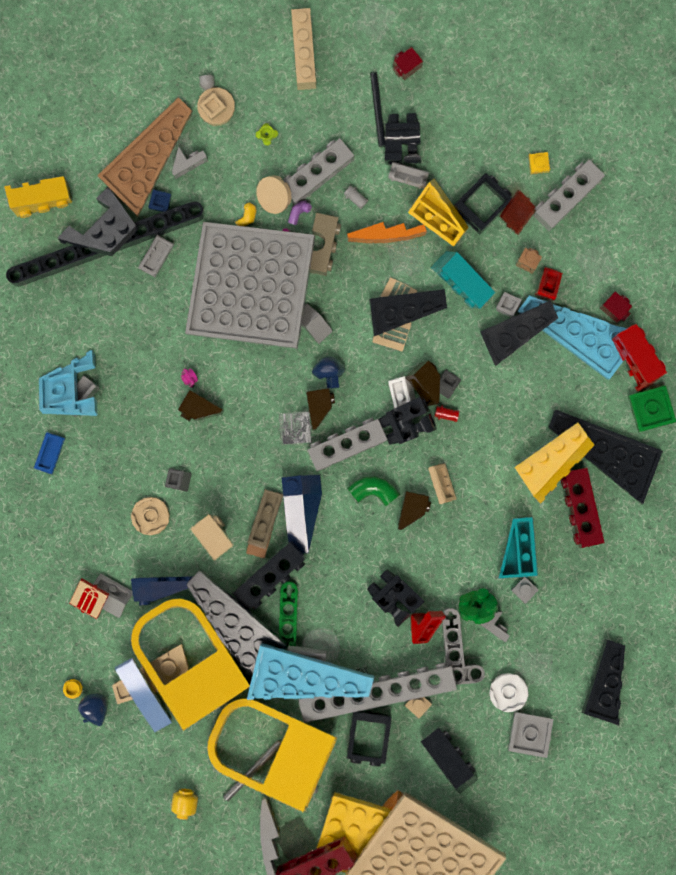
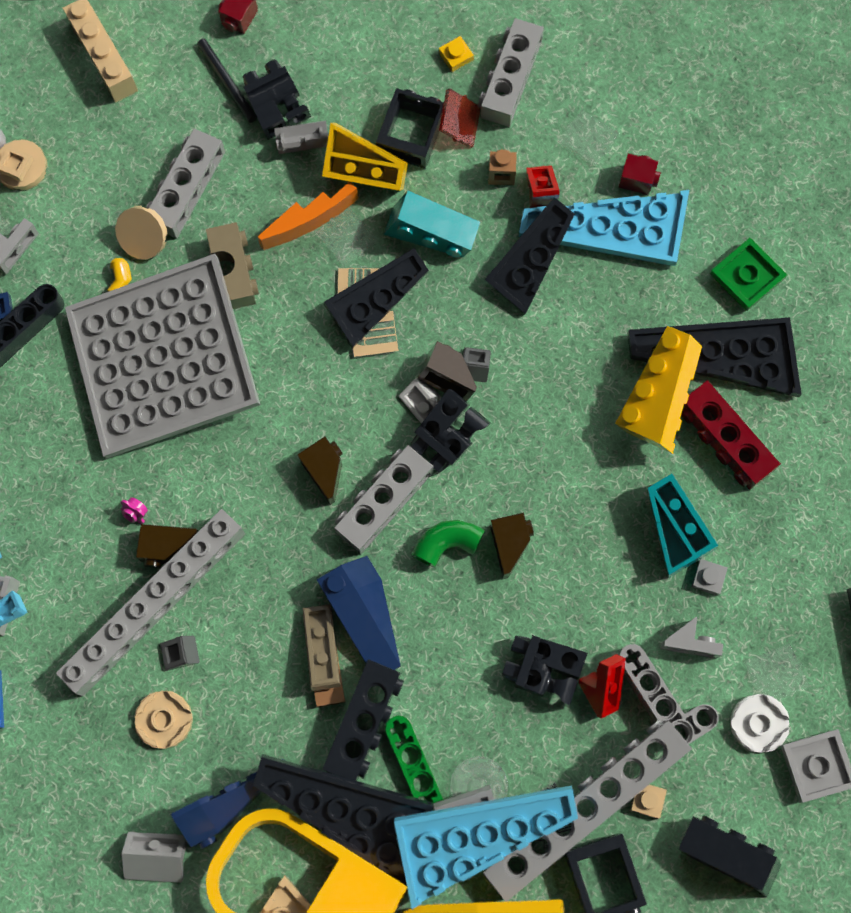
camera: 20 degrees left, 10 degrees down
(89, 598) = (126, 874): piece -> none
(156, 256) = (22, 378): light grey plate -> none
(174, 441) = (150, 603): none -> light grey brick
(212, 535) = (256, 698): tan wedge -> none
(266, 128) = (96, 162): lime plate -> none
(295, 428) = (305, 509): clear piece -> none
(297, 209) = (181, 239): medium lavender arm -> none
(315, 324) = (270, 368): light grey slope -> none
(330, 369) = (315, 412): dark blue piece -> none
(355, 197) = (248, 192): light grey pin -> none
(442, 483) = (532, 490): tan plate -> none
(446, 413) = (493, 400): red pin -> none
(478, 598) = (647, 629): green plate -> none
(508, 305) = (504, 232): light grey plate -> none
(640, 356) = (700, 215): red wedge -> none

